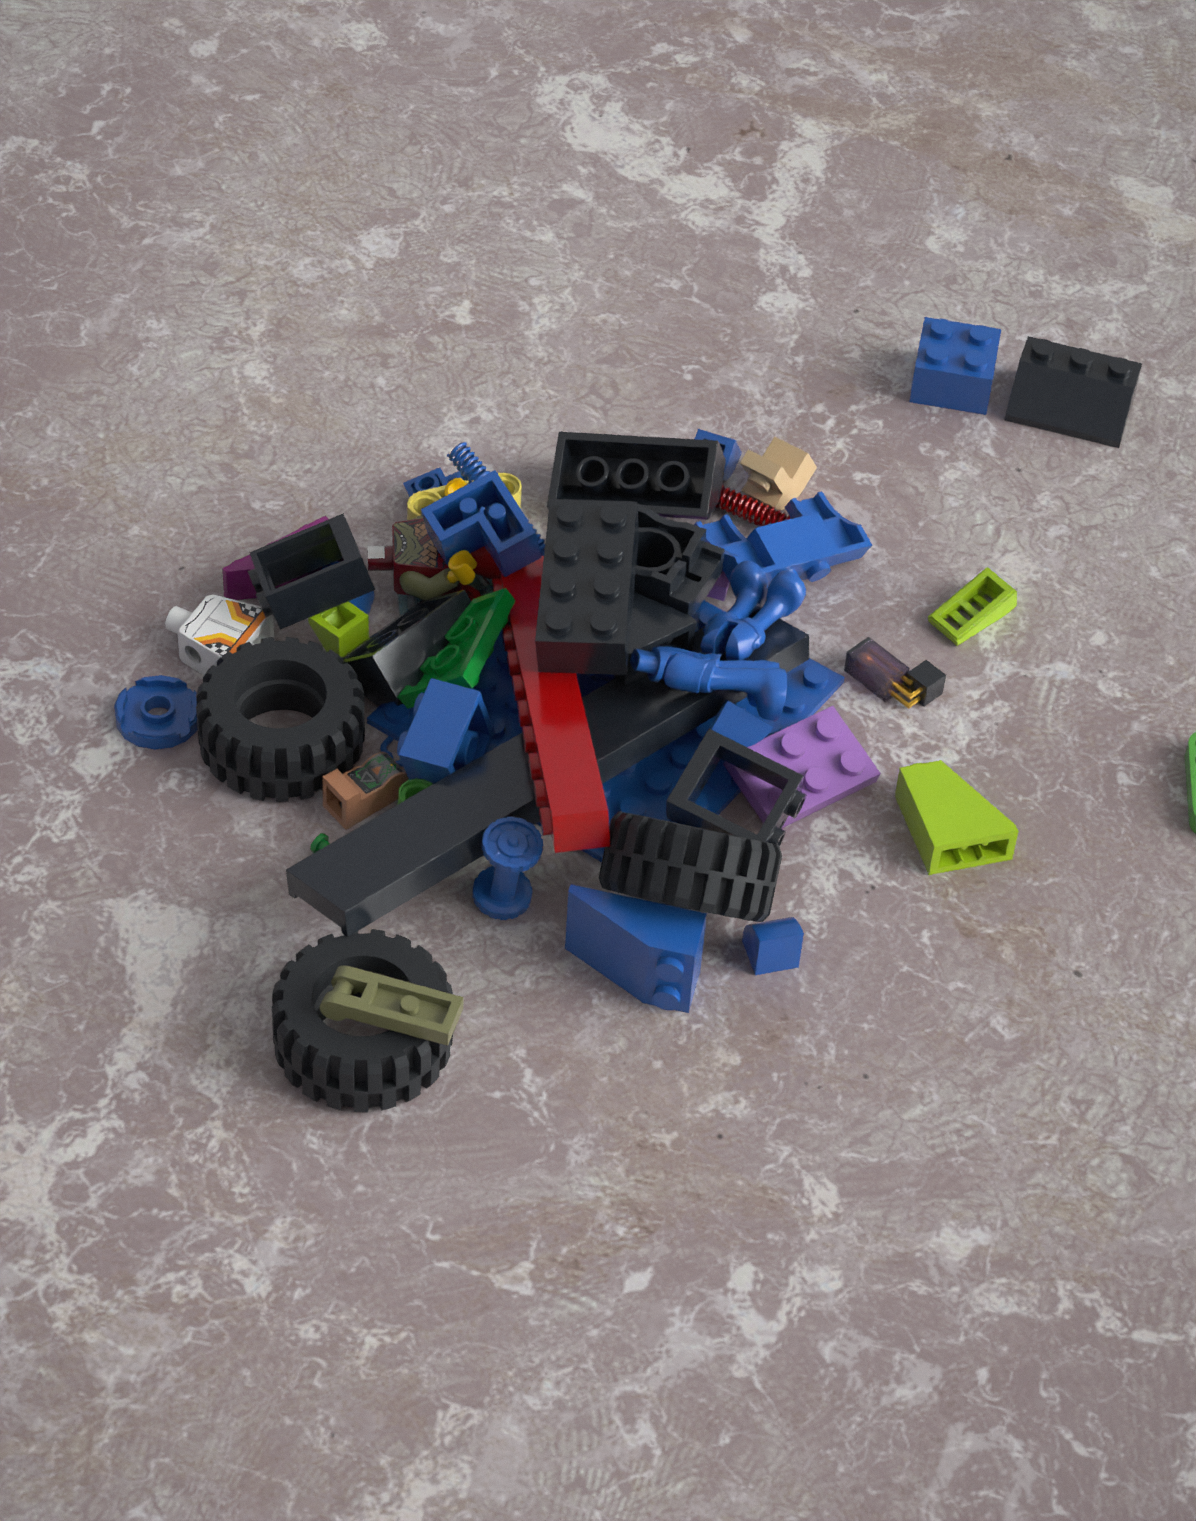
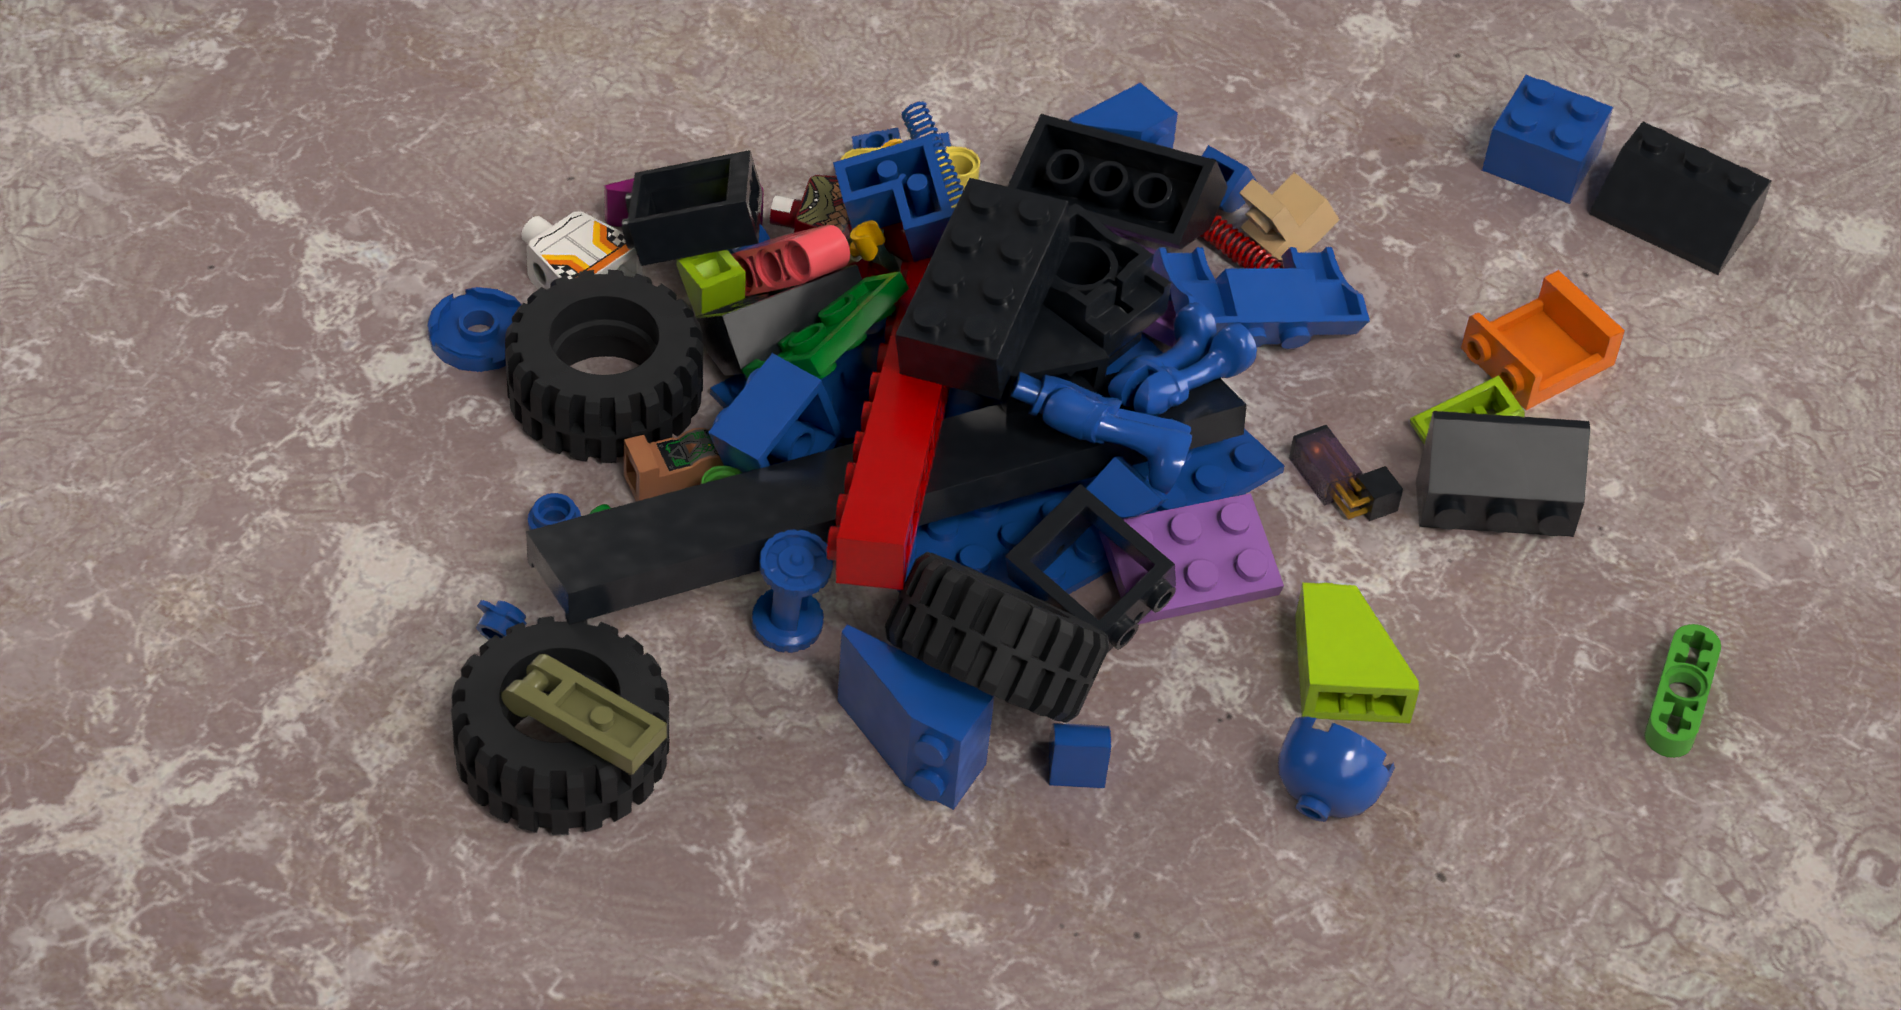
camera: 15 degrees right, 0 degrees up
(277, 949) = (498, 618): none -> blue plate
(282, 852) = (552, 509): none -> blue plate
(407, 596) = (793, 259): none -> coral beam
(627, 415) = (1135, 115): none -> blue slope
(973, 911) = (1331, 770): none -> blue cylinder
(1010, 531) = (1545, 342): none -> orange panel
(1019, 645) = (1503, 473): none -> black slope

